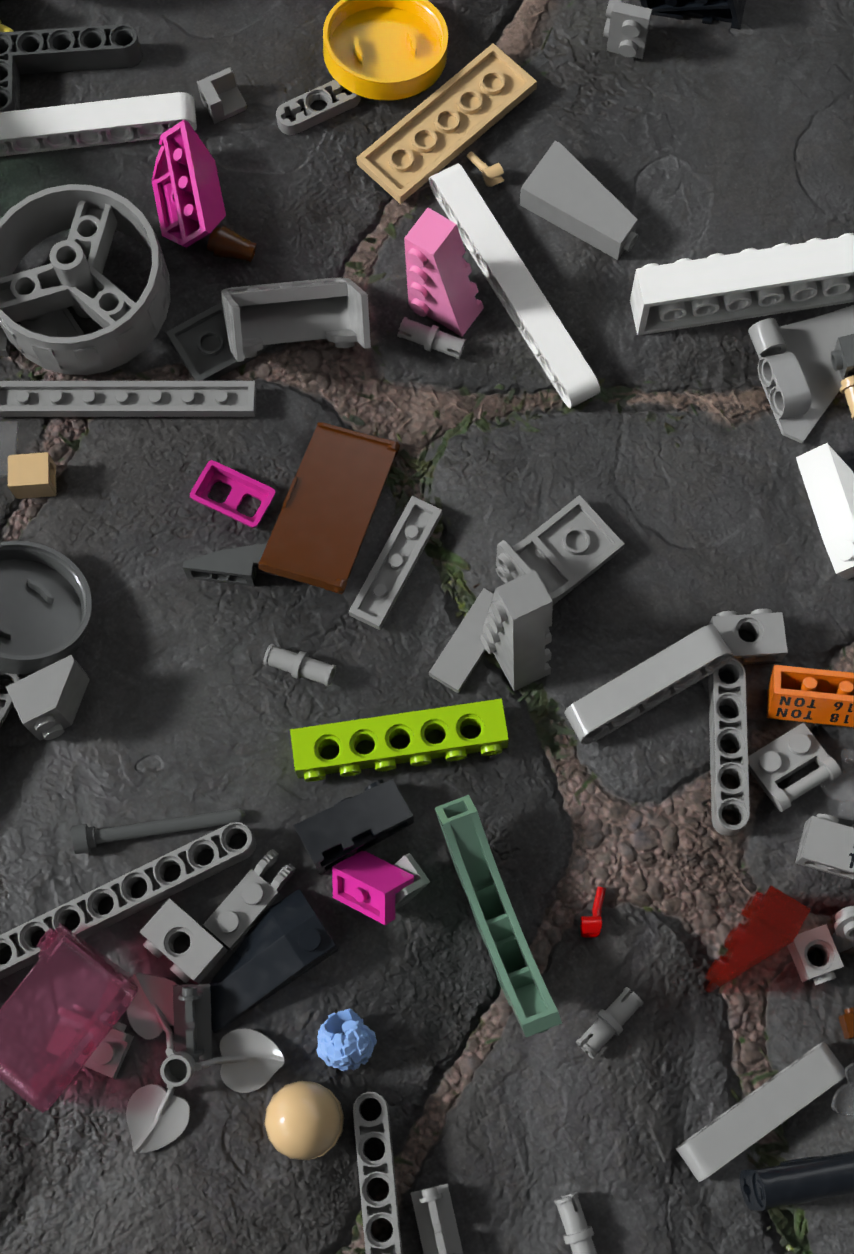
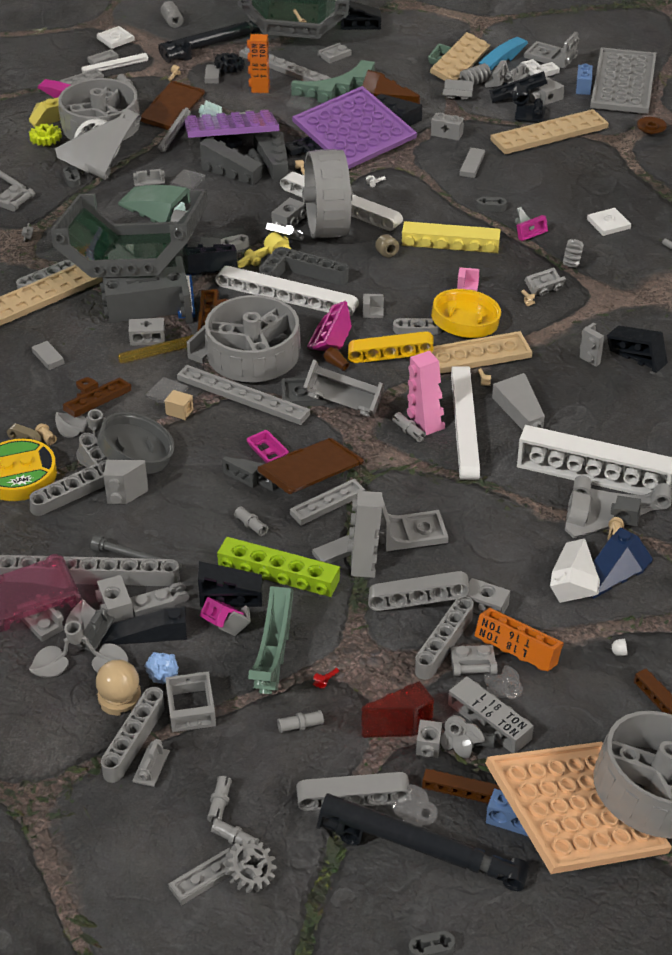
camera: 25 degrees right, 30 degrees down
(308, 180) = (390, 347): none -> yellow beam
(387, 1054) = (194, 717): none -> light grey window

